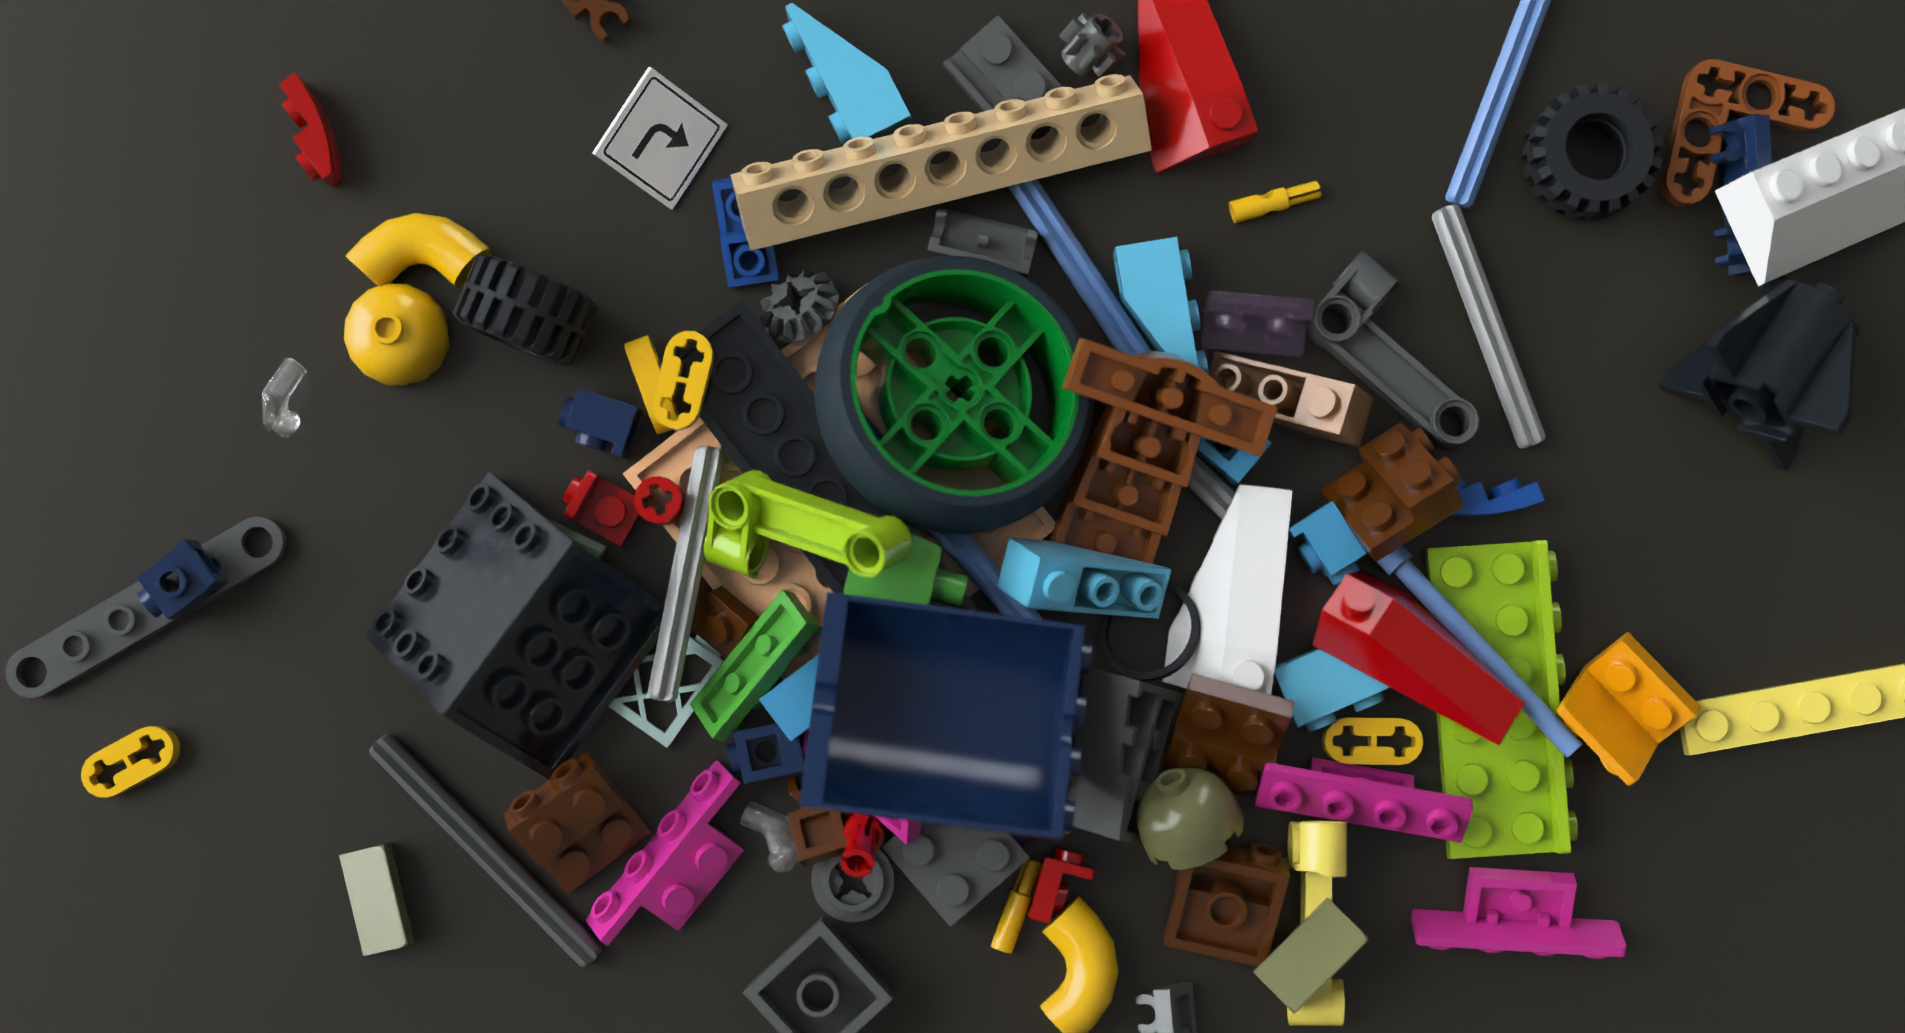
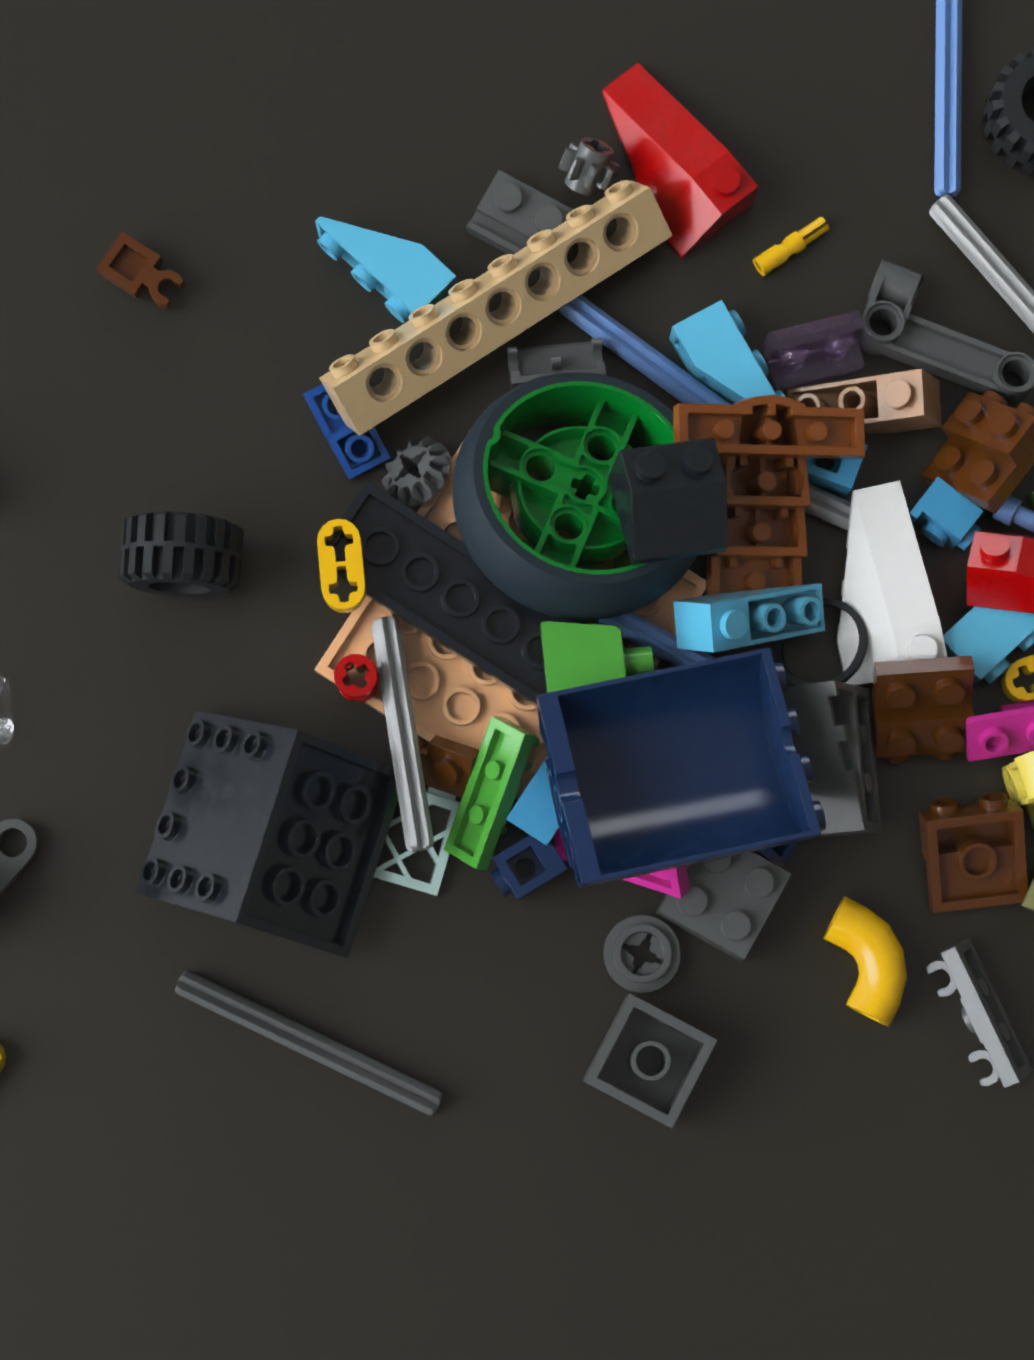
camera: 20 degrees left, 5 degrees down
(377, 899) = (226, 1121): slope -> none
(396, 334) = (73, 619): yellow cylinder -> none
(415, 241) = (62, 532): yellow cylinder -> none
(575, 822) = (381, 987): reddish brown plate -> none
(600, 422) = (279, 631): dark blue brick -> none
(601, 507) = (306, 706): red bracket -> none
(646, 372) = (307, 578): yellow beam -> none
(660, 138) = (245, 371): white piece -> none
(677, 863) = (482, 993): dark pink bracket -> none
(755, 508) = (438, 680): lime piece -> none
(777, 835) = (562, 935): clear arm -> none
(815, 831) = (594, 916): reddish brown plate -> none
(861, 846) = (639, 906): red pin -> none
(1016, 908) = (792, 927): yellow pin -> none
(1038, 439) = (671, 500): none -> black slope
(1048, 890) = (815, 900): red bracket -> none
(1187, 818) = (914, 791): olive cylinder -> none

